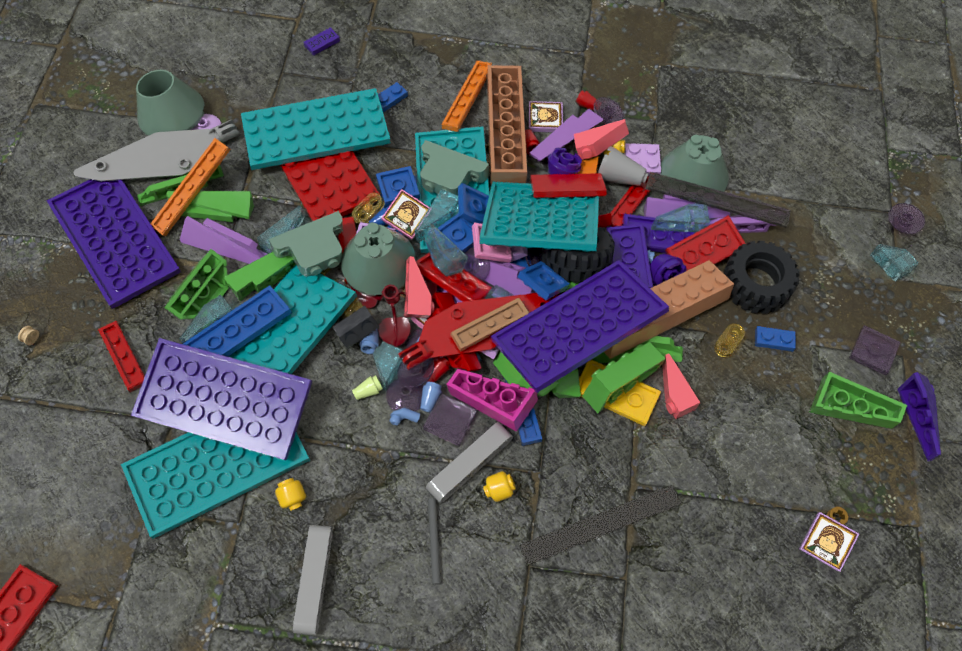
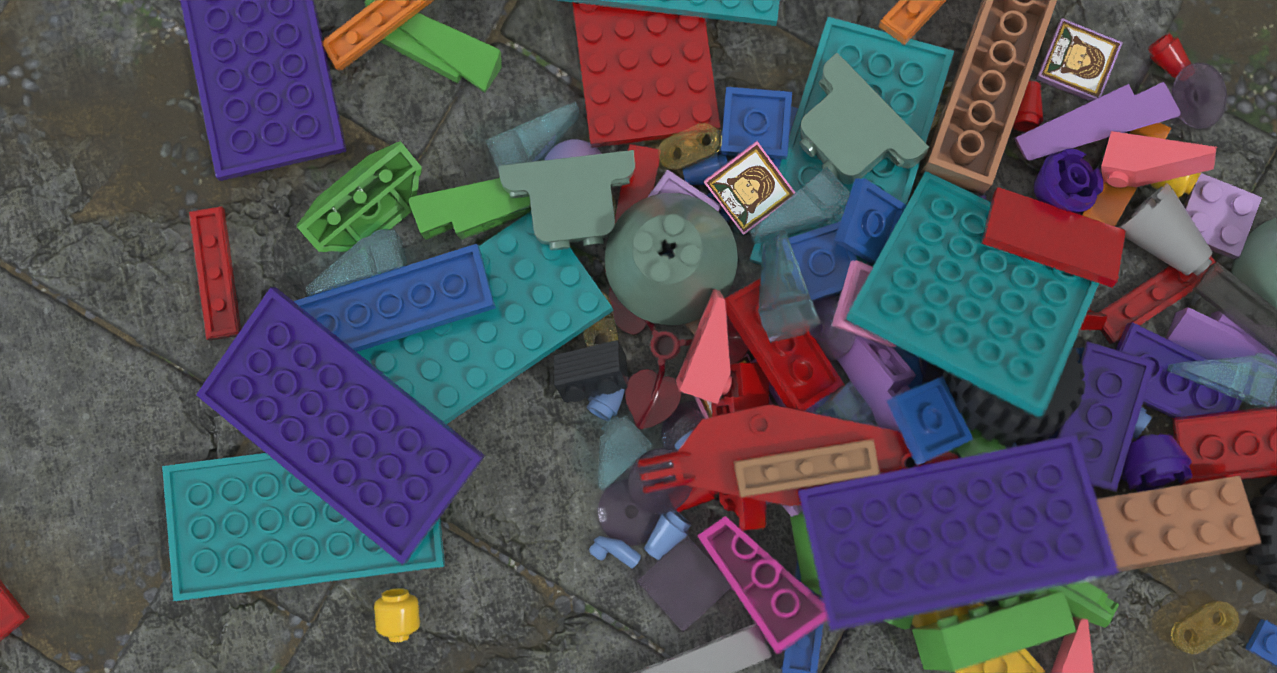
camera: 30 degrees right, 20 degrees up
(28, 335) = (81, 184): tan bush -> none
(220, 239) = (428, 118): medium lavender wedge -> none
(369, 387) = (577, 480): yellowish green cone -> none

